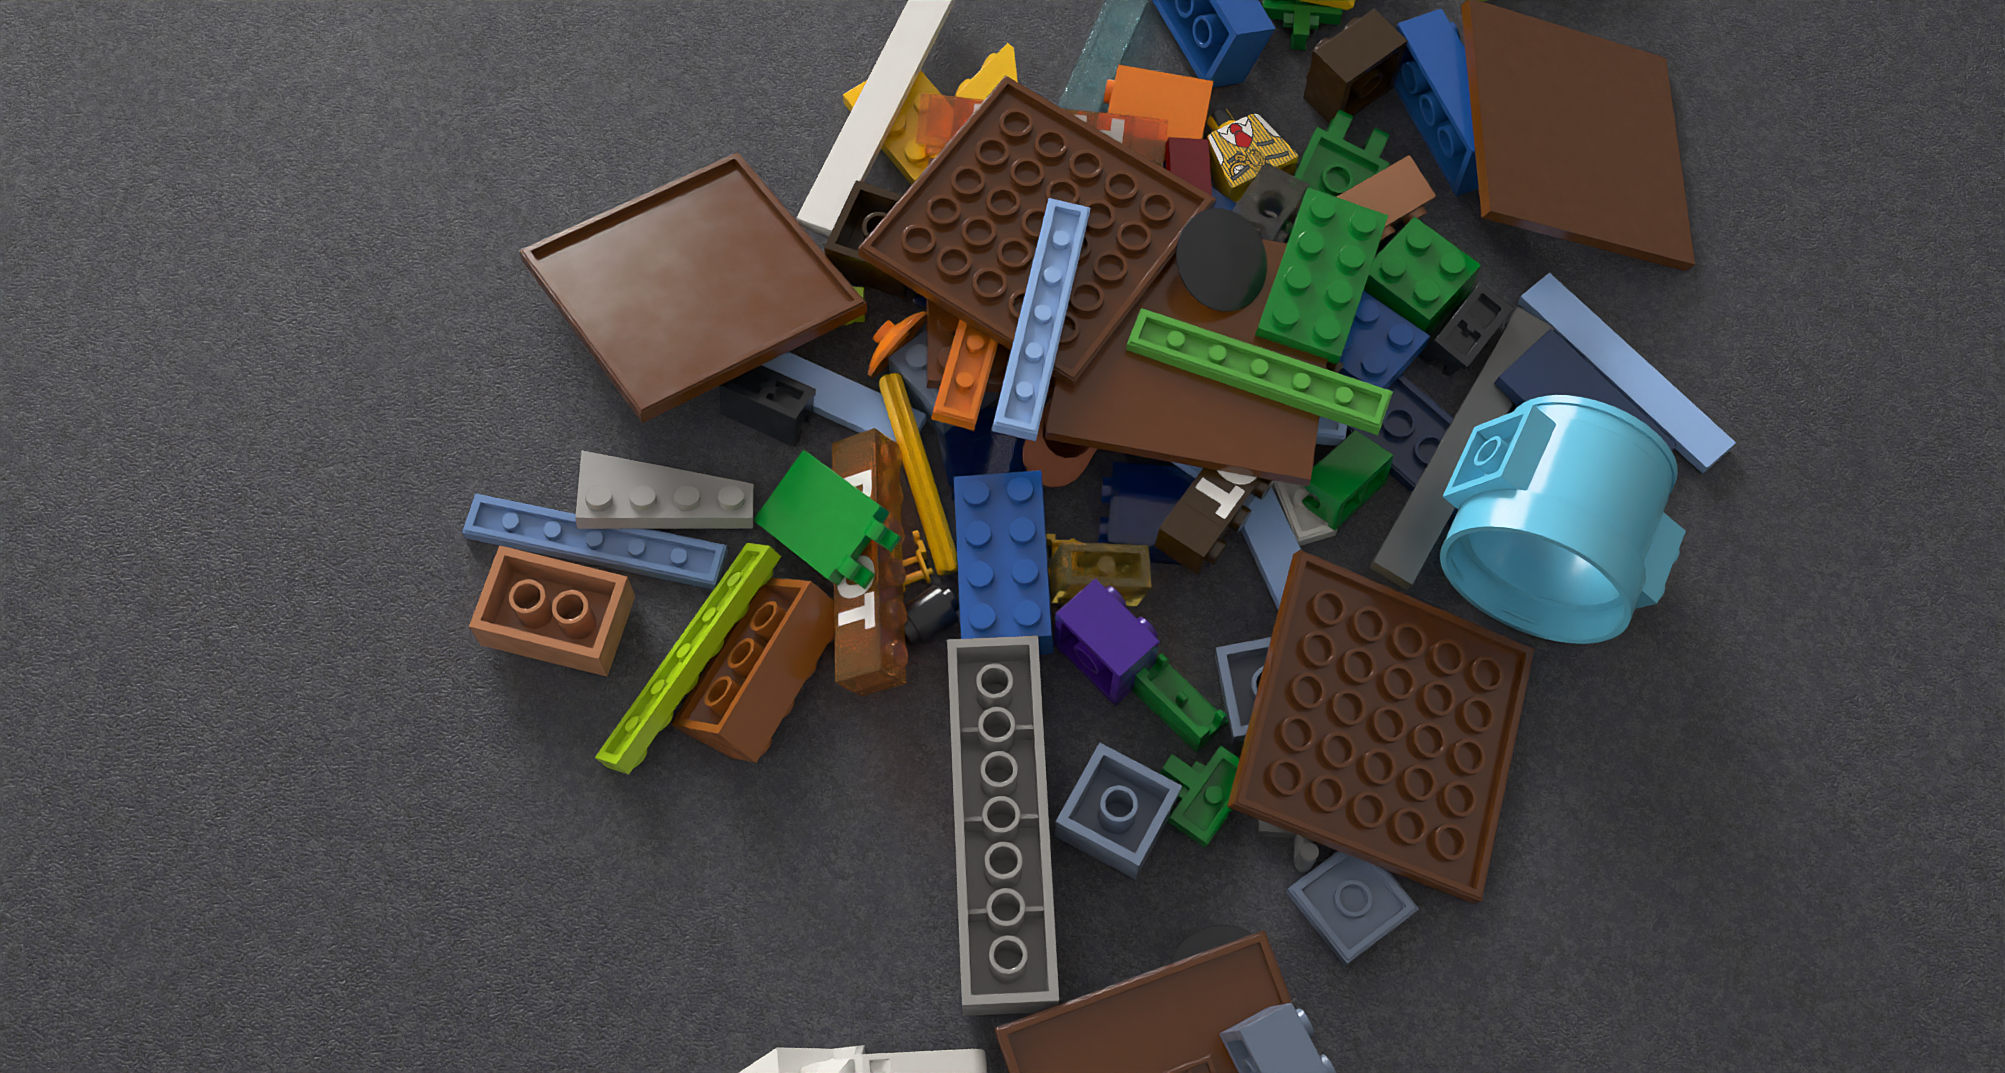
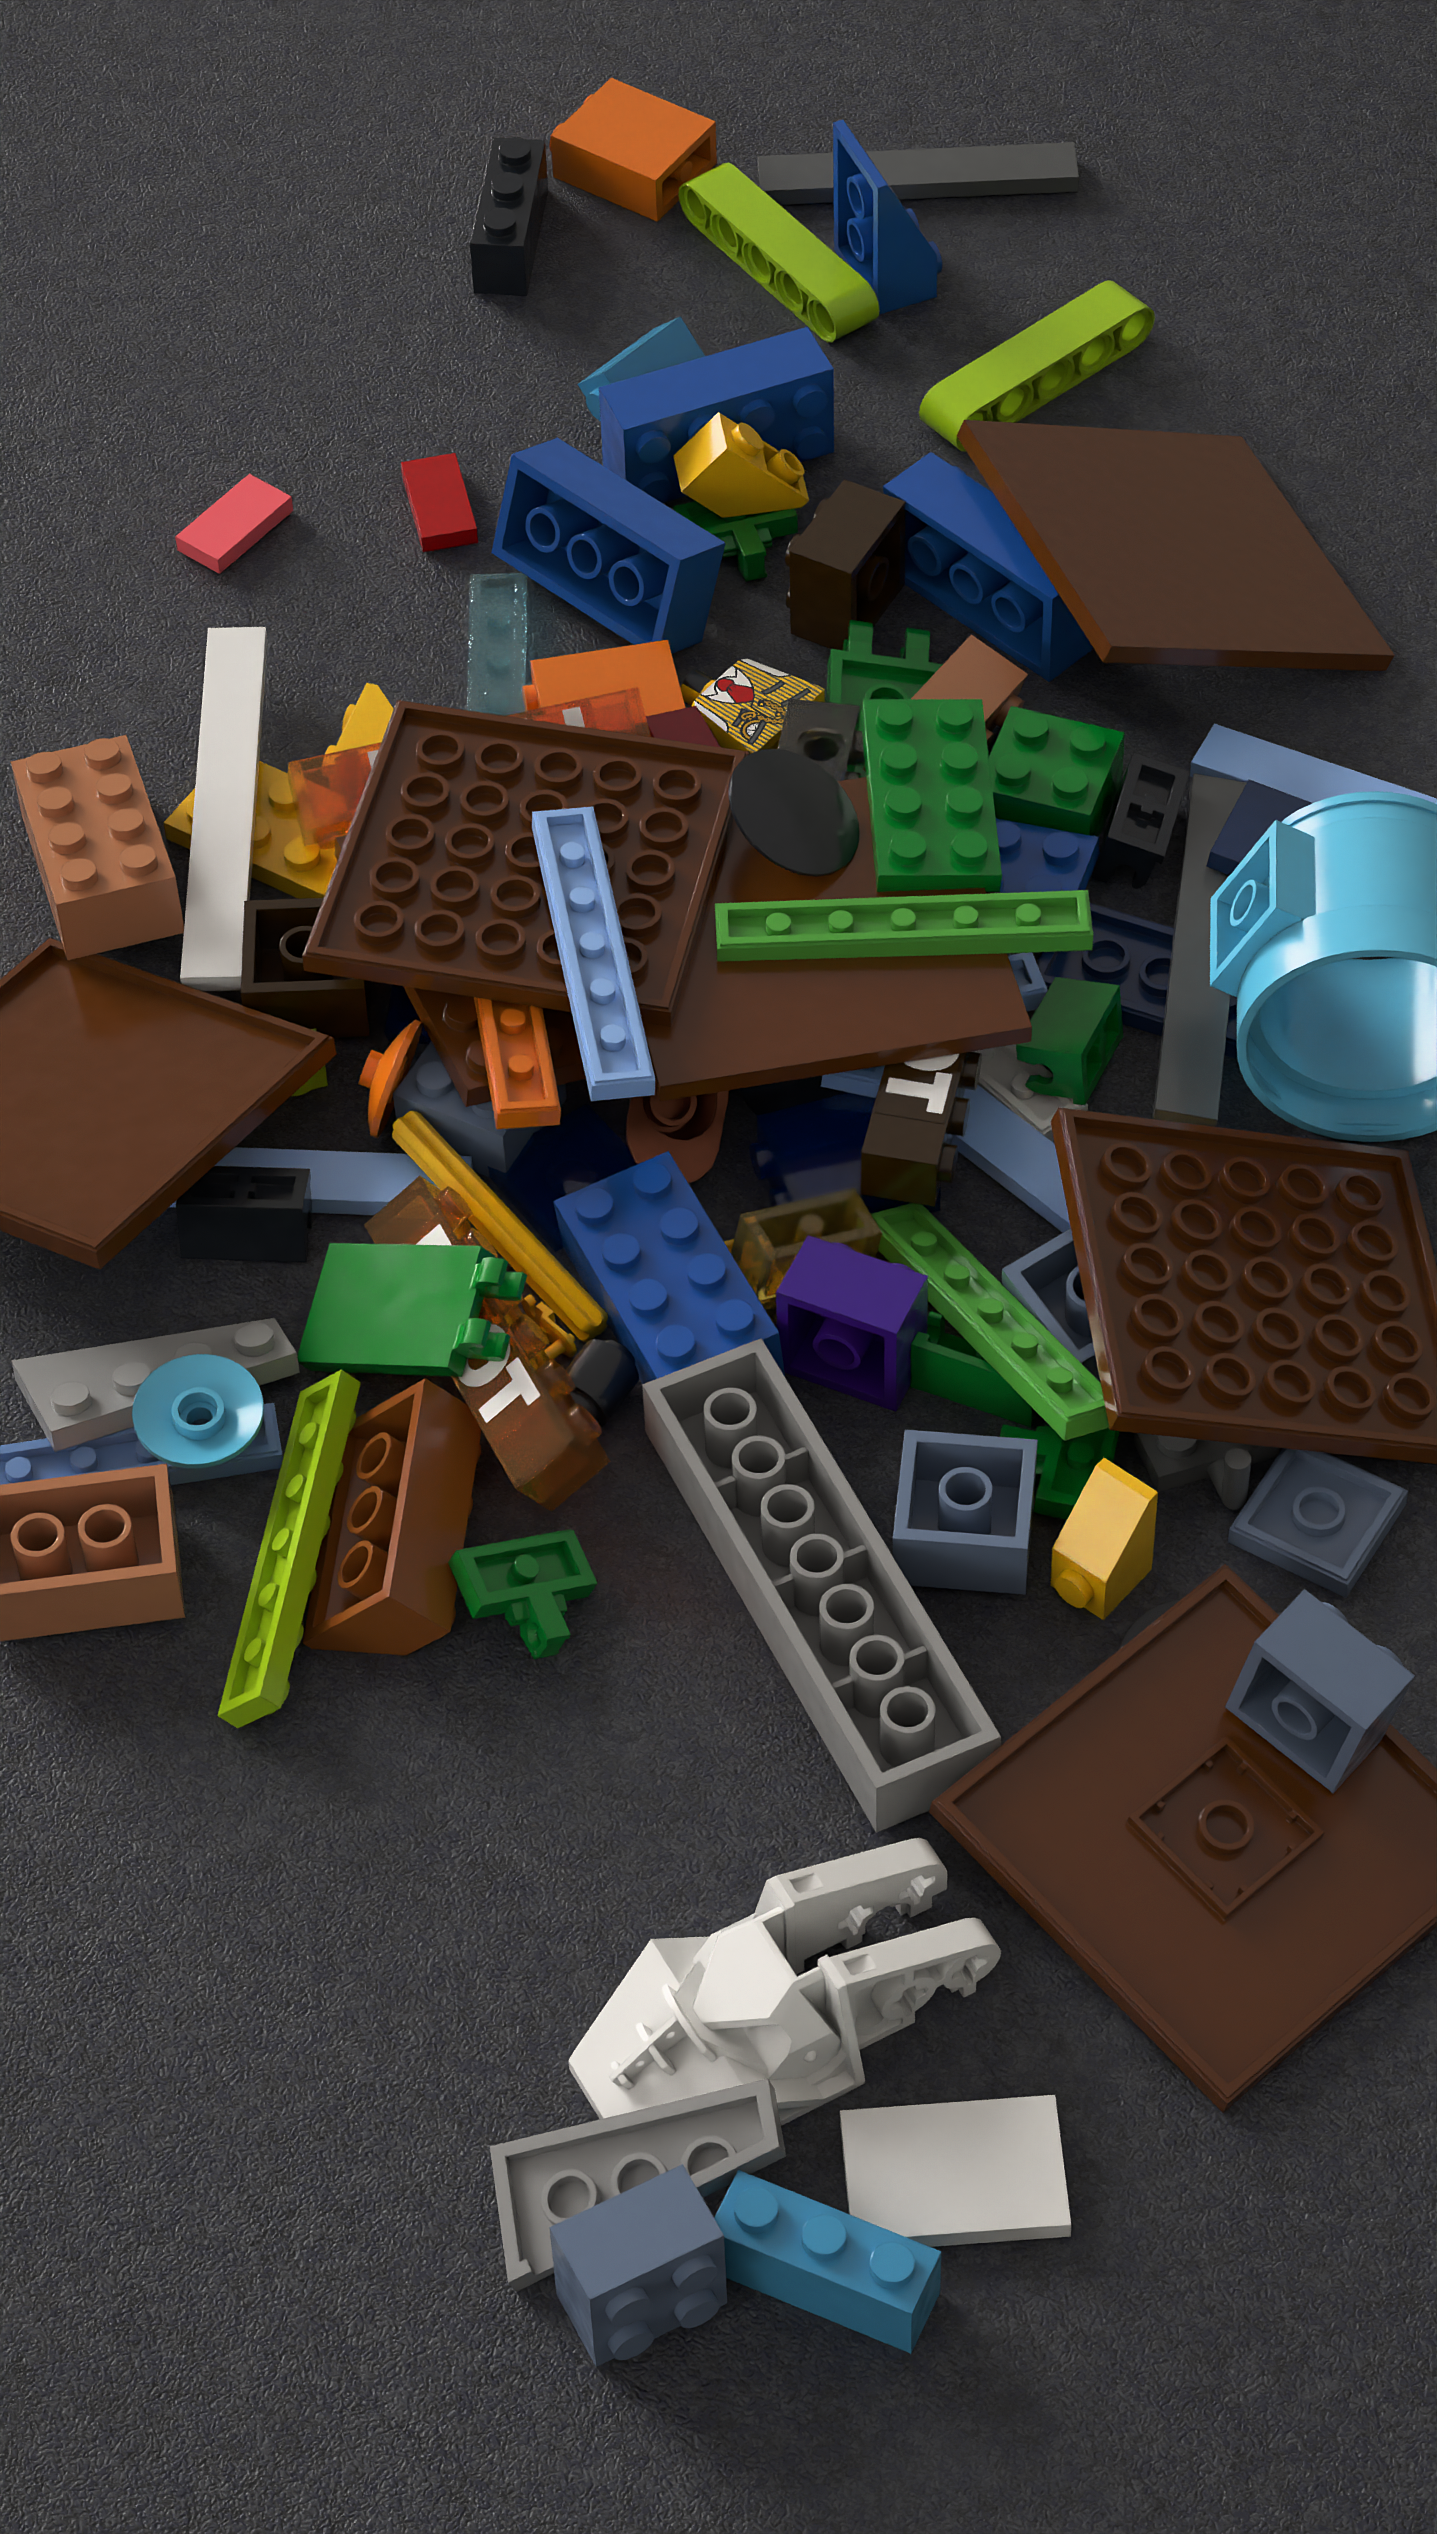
camera: 20 degrees left, 15 degrees down
(667, 521) = (194, 1390): none -> medium azure dish
(788, 101) = (98, 847): none -> nougat brick
(820, 745) = (528, 1583): none -> green hinge
(1195, 679) = (994, 1322): none -> bright green tile
(1196, 874) = (1105, 1541): none -> yellow slope

